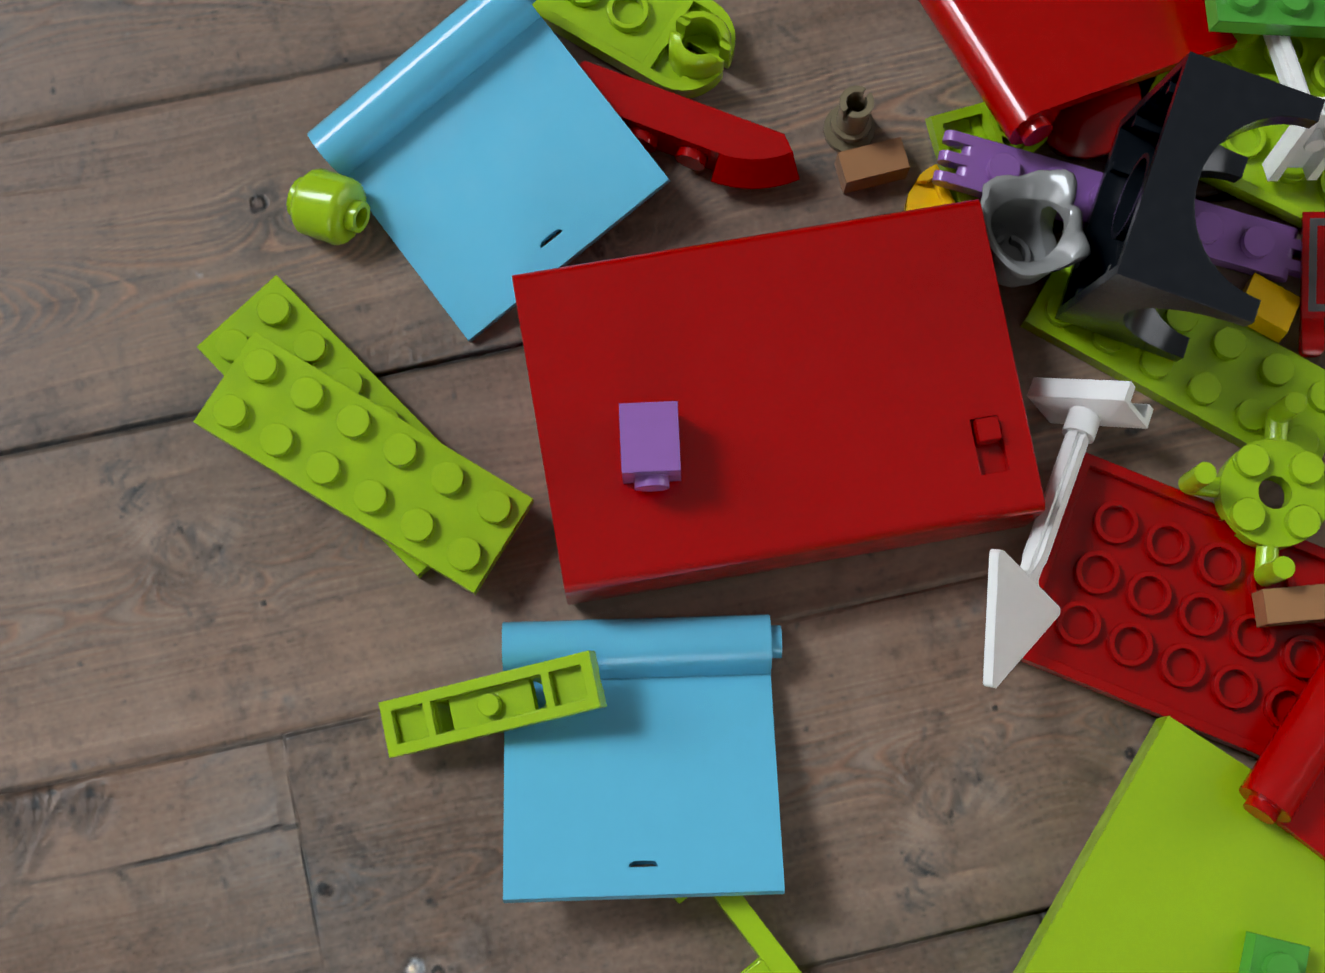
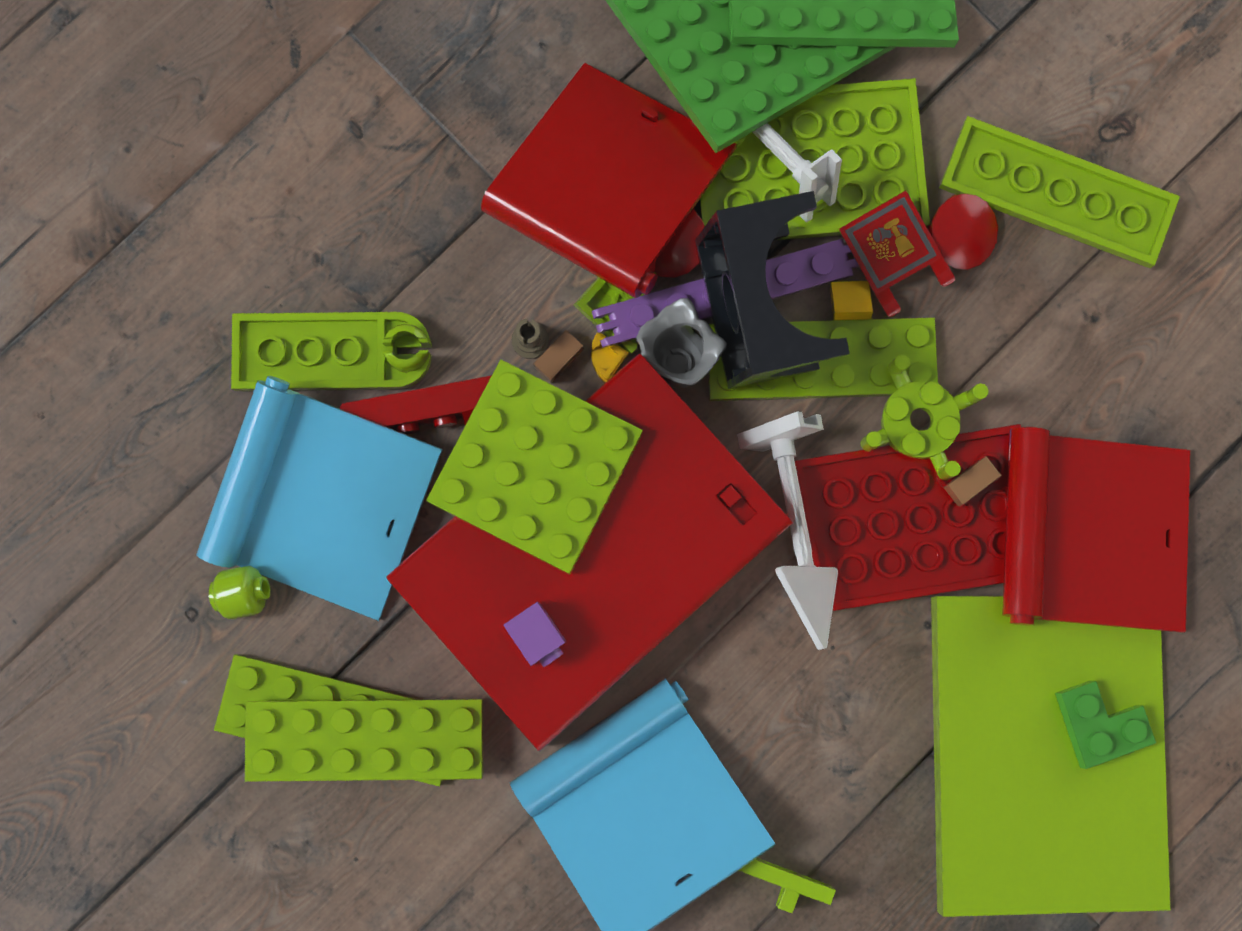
camera: 30 degrees left, 5 degrees up
(492, 704) = (535, 839): lime hinge -> none
(772, 252) = (535, 466): none -> lime plate

